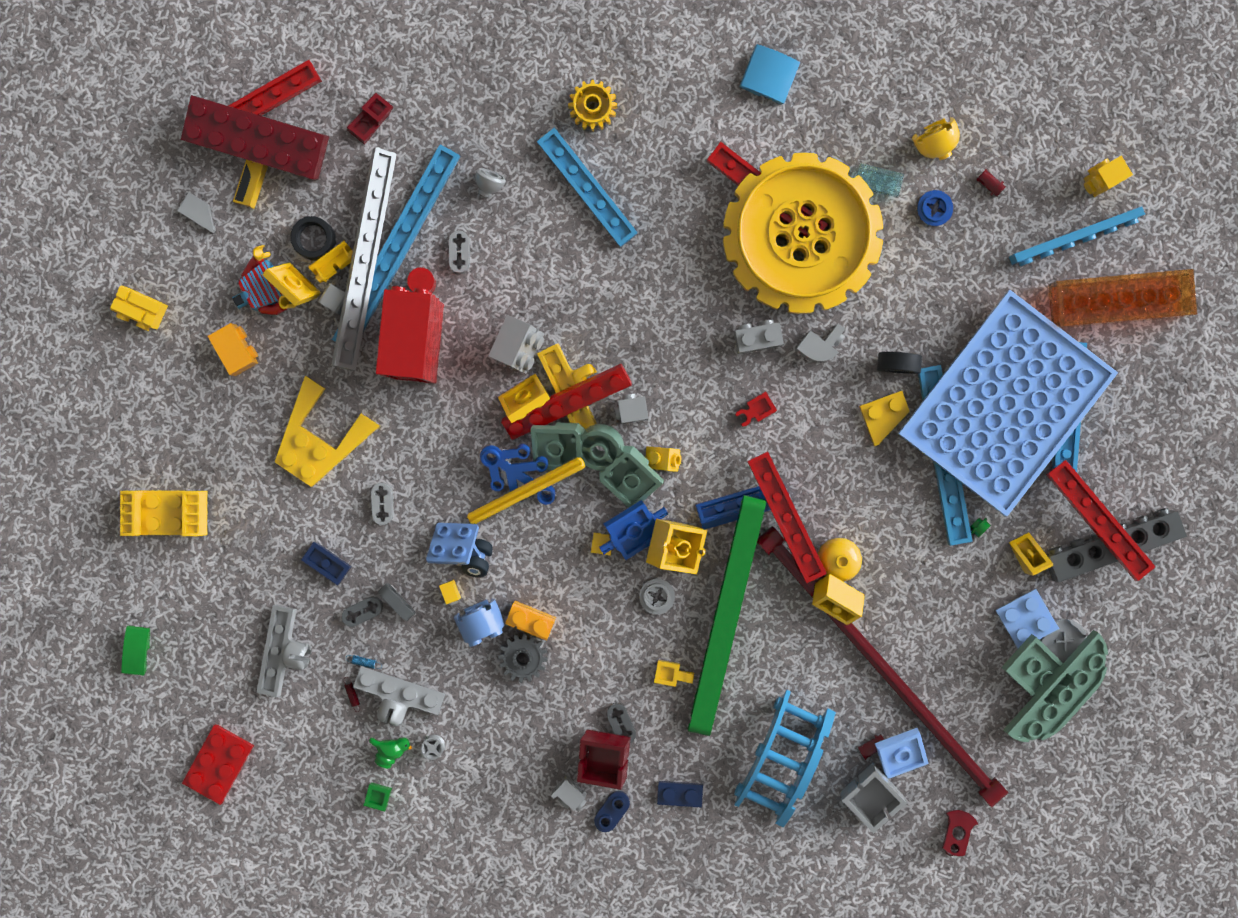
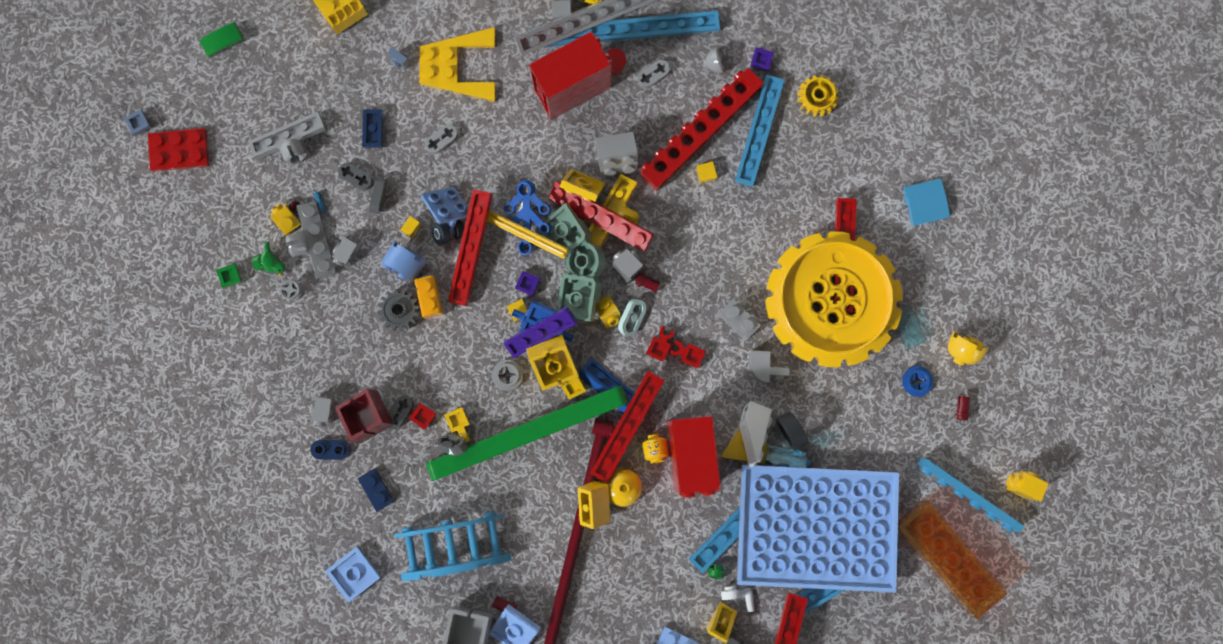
camera: 50 degrees right, 5 degrees down
(164, 785) = (137, 122): none -> sand blue plate
(273, 492) = (398, 59): none -> sand blue plate
(357, 707) = (284, 218): none -> yellow bracket
(430, 671) = (345, 252): none -> light grey brick
(510, 548) = (470, 247): none -> red plate
(518, 135) = (761, 59): none -> dark purple plate
(537, 163) = (746, 80): none -> red brick
(582, 517) = (527, 283): none -> dark purple plate
(592, 268) = (706, 172): none -> yellow piece
(639, 537) = (540, 331): none -> dark purple tile
(641, 703) = (423, 416): none -> red plate
(660, 401) = (647, 282): none -> dark red pin
(684, 439) = (631, 317): none -> light aqua plate
(688, 694) = (452, 444): none -> dark grey beam
(713, 541) = (573, 387): none -> yellow plate
(731, 433) = (659, 347): none -> red plate
(744, 868) = (353, 574): none -> light blue plate
(825, 504) = (655, 449): none -> yellow head
(861, 475) = (693, 456): none -> red brick
(870, 397) = (753, 428): none -> white slope
(920, 385) = (786, 456): none -> clear light blue plate
(1009, 526) = (732, 593): none -> white plate

